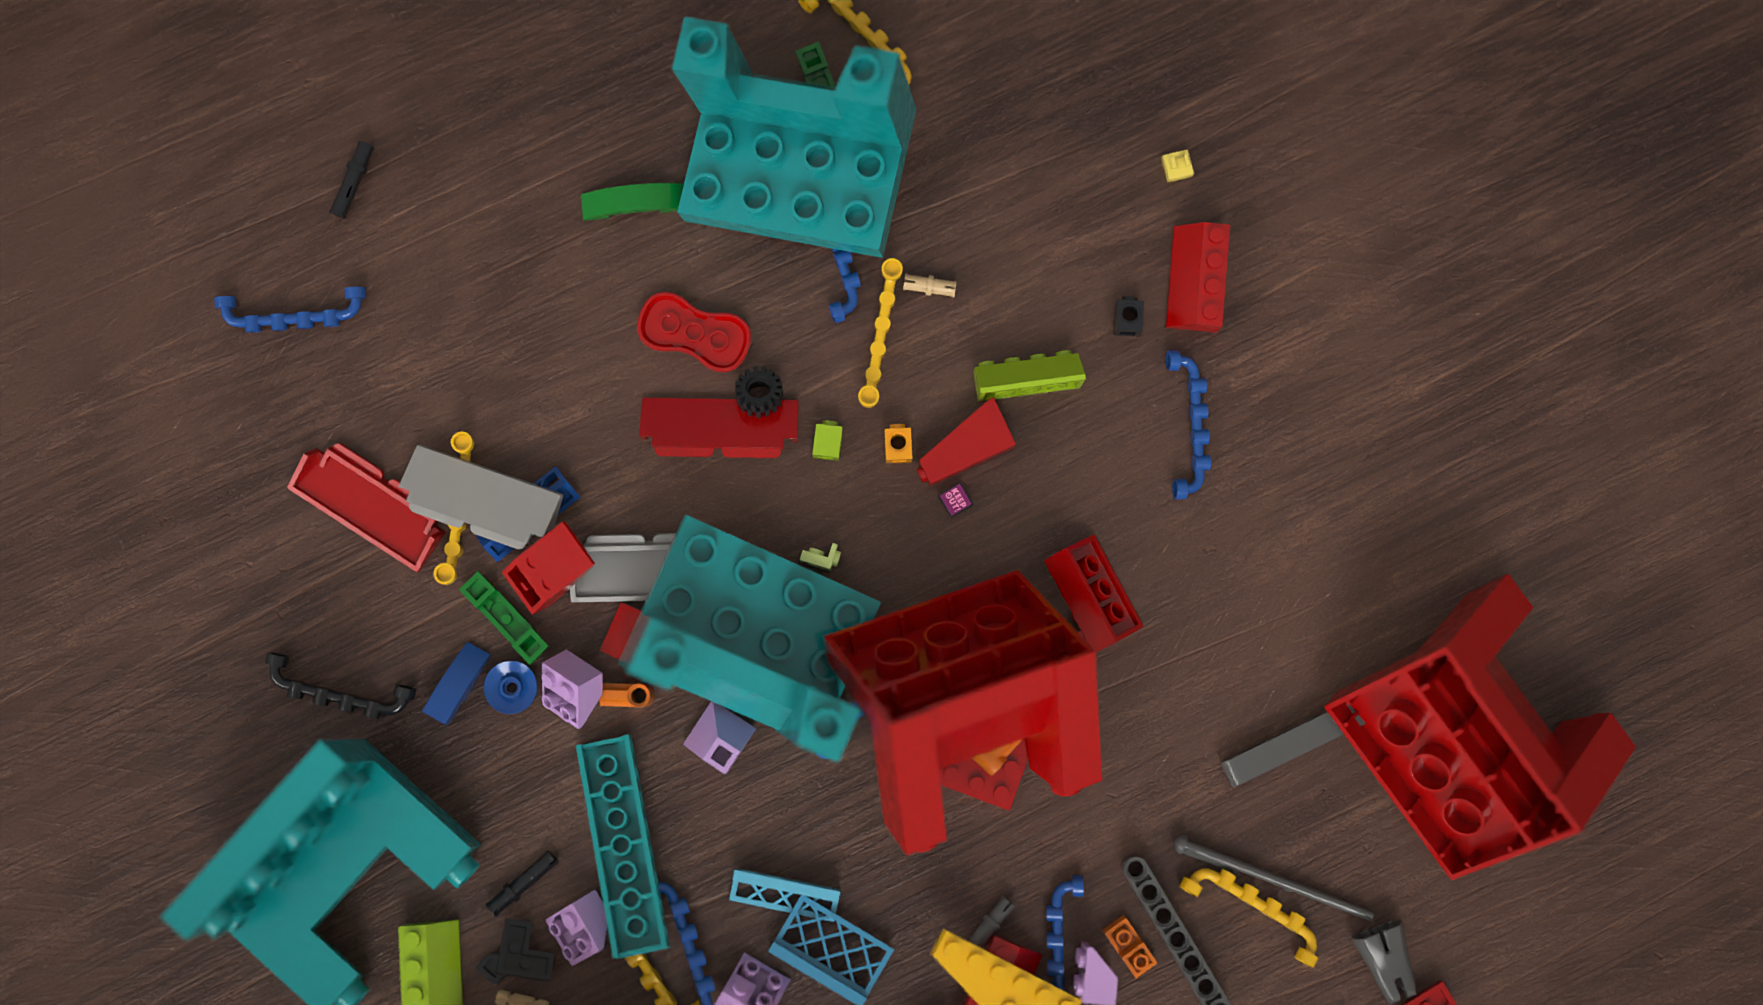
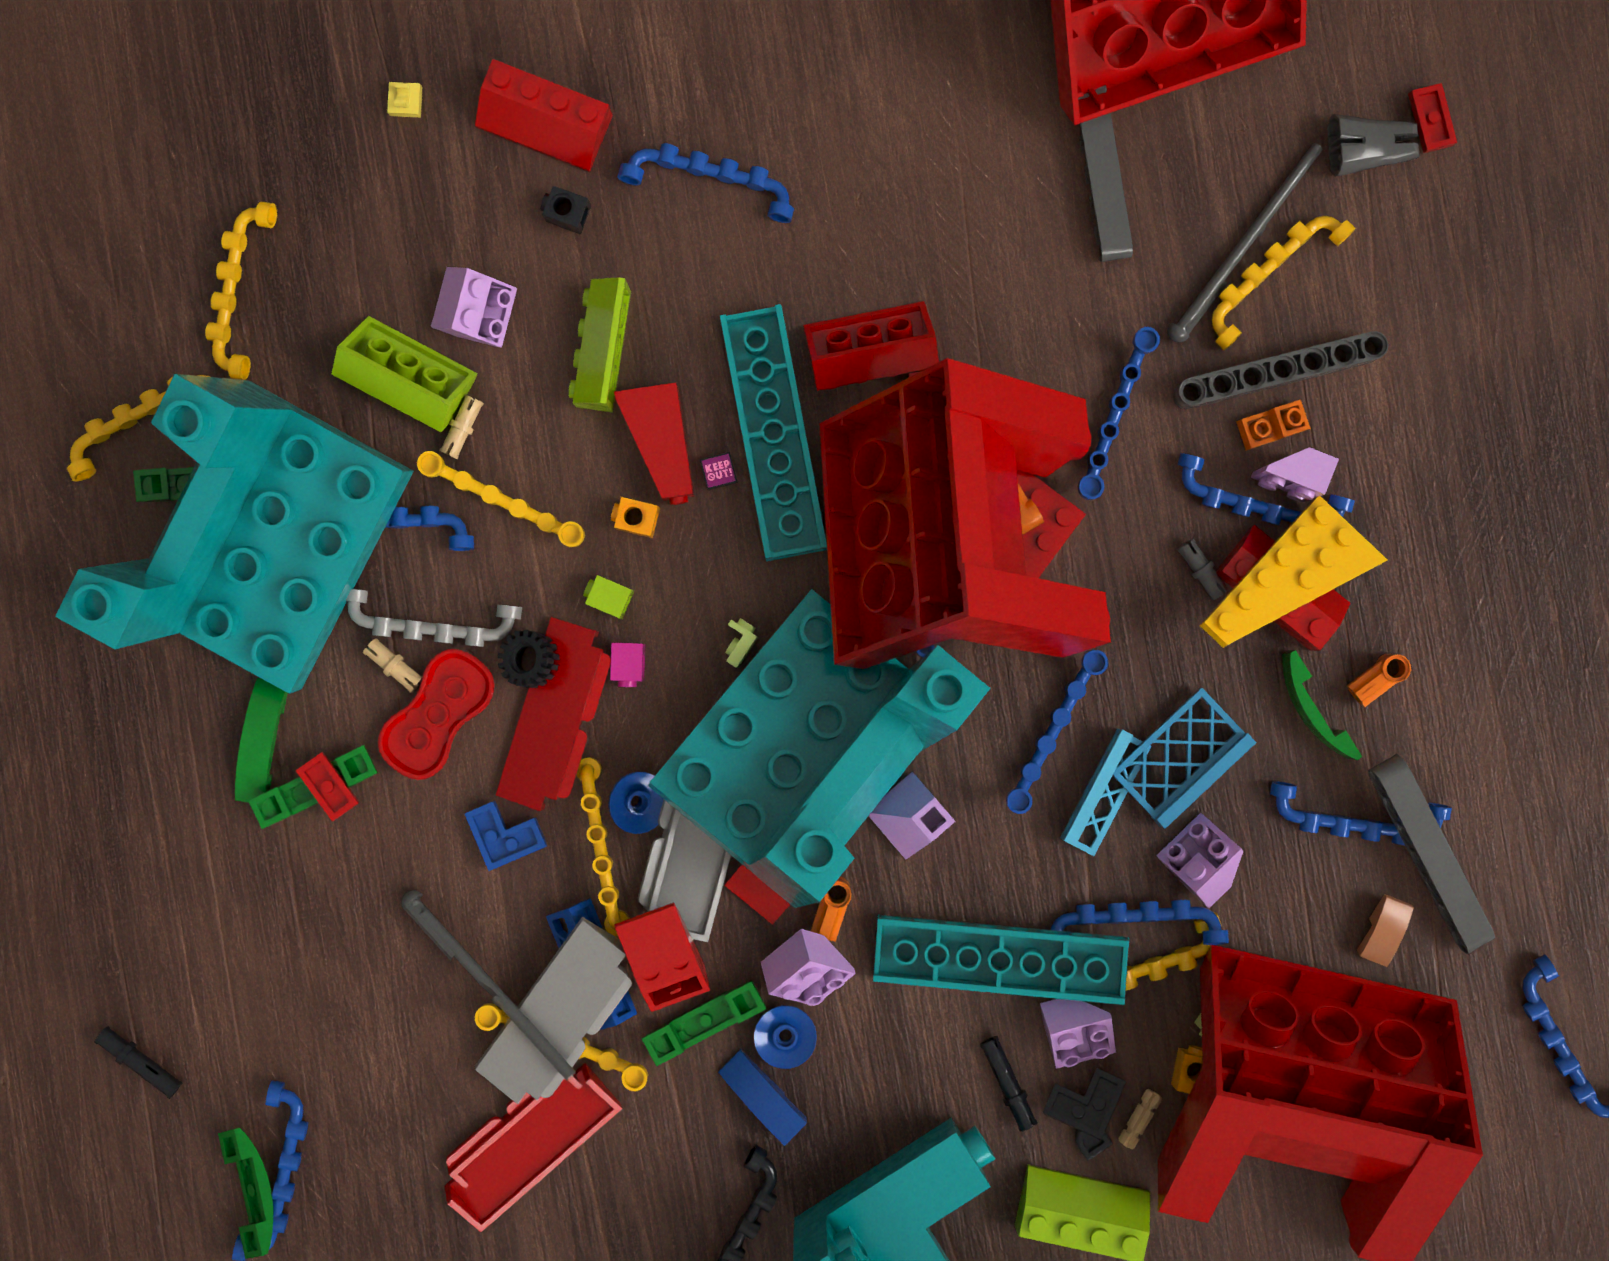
camera: 70 degrees left, 5 degrees up
(274, 300) = (255, 1188): none -> green slope
(509, 399) = (452, 948): none -> dark grey bar
(604, 411) = (501, 844): none -> blue plate
(608, 252) = (296, 796): none -> green slope
(611, 263) = (327, 786): none -> red plate
(654, 512) = (645, 813): none -> blue dish
(682, 466) = (588, 772): none -> yellow bar
(723, 286) = (393, 665): none -> tan pin
(758, 822) = (1019, 799): none -> blue bar
(760, 318) = (443, 632): none -> light grey bar
(778, 472) = (627, 663): none -> dark pink brick
(958, 227) = (403, 373): none -> lime slope
(998, 70) = (225, 302): none -> yellow bar
(998, 535) = (773, 433): none -> teal tile
(1028, 267) = (474, 306): none -> lavender slope
(1164, 816) = (1144, 342): none -> blue bar

